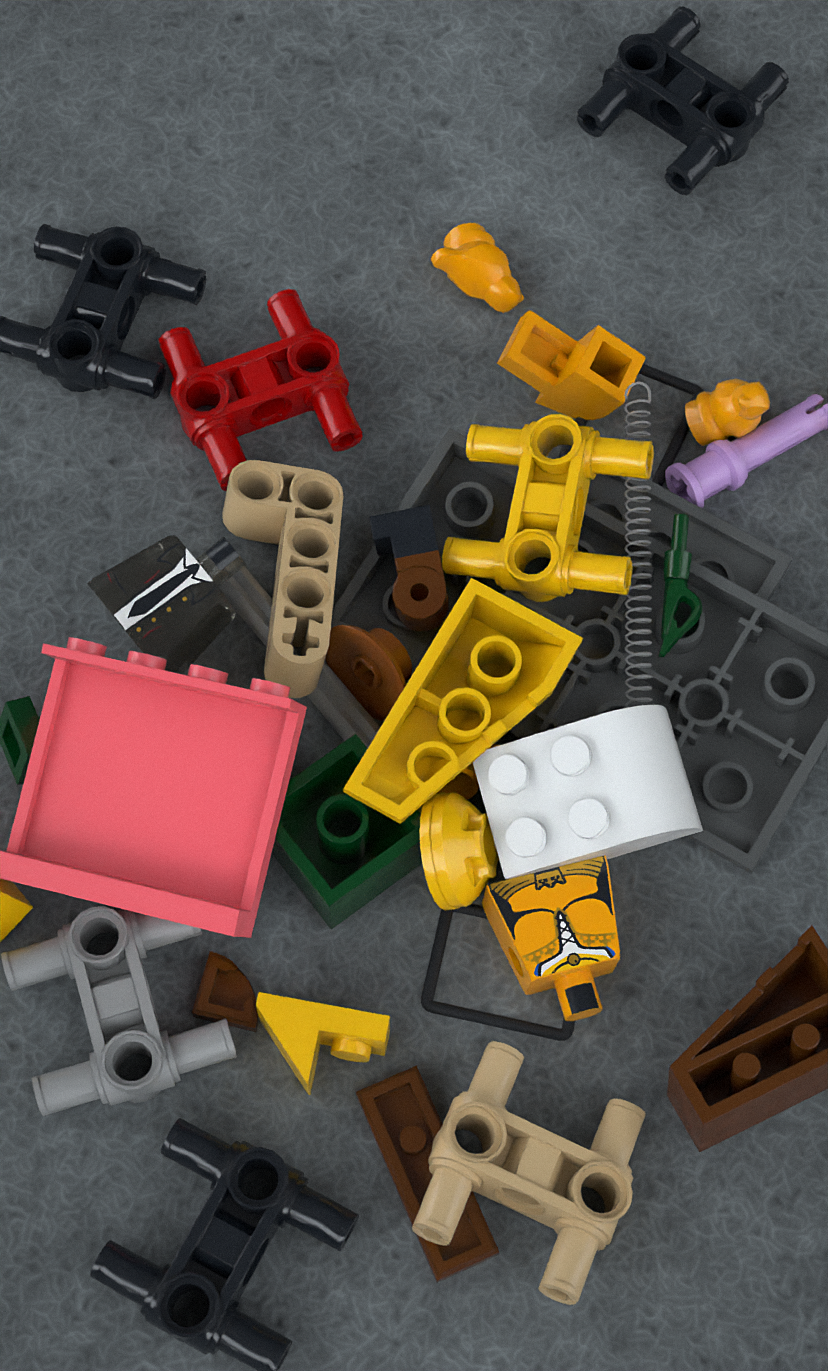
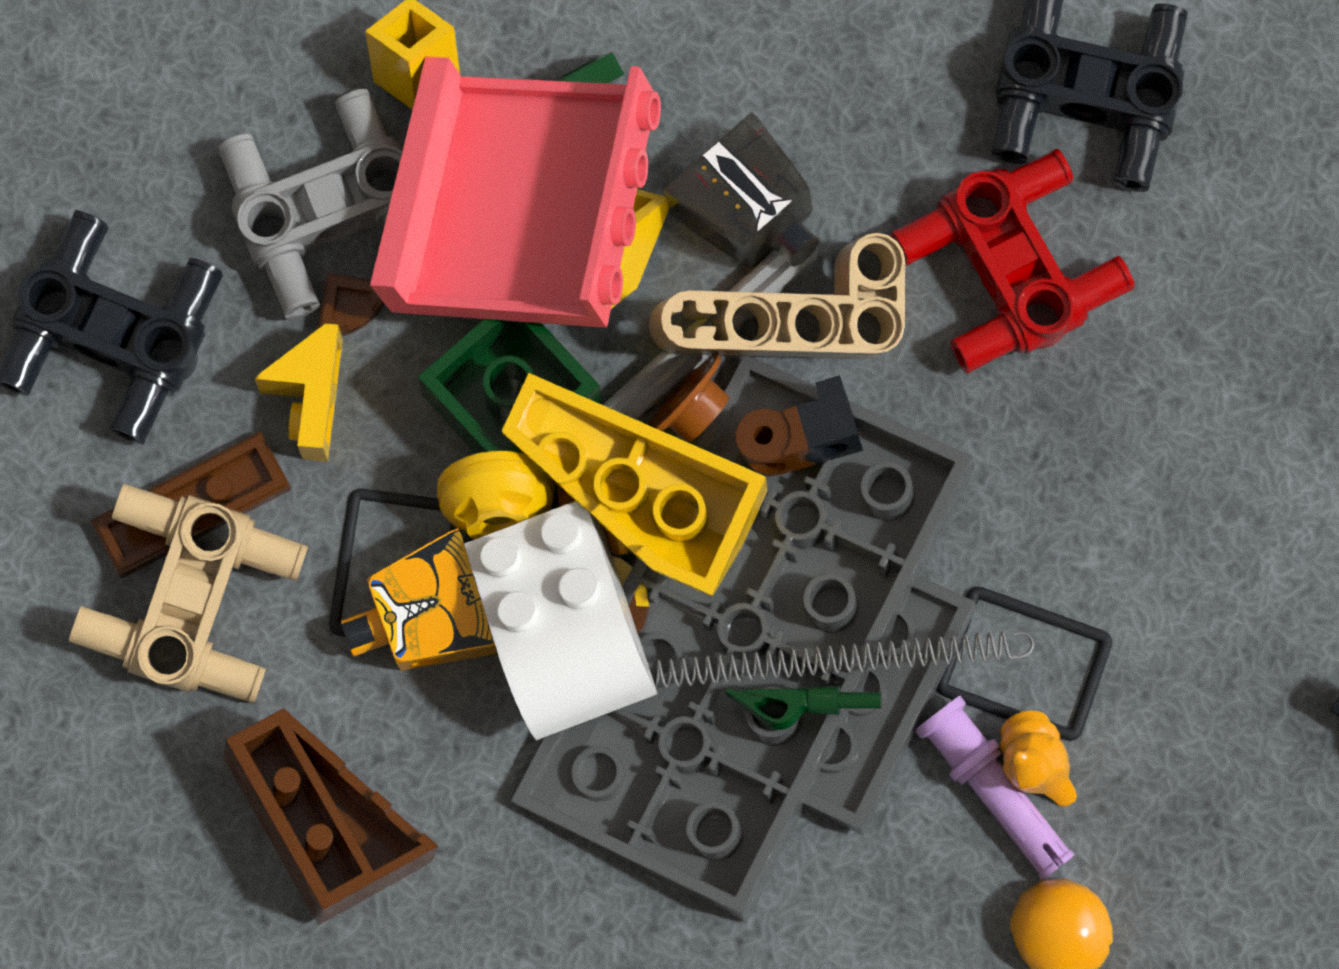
camera: 85 degrees right, 10 degrees up
(478, 267) = (1194, 478): light orange animal -> none
(548, 508) = (871, 558): yellow piece -> none
(572, 376) = (1069, 579): light orange brick -> none

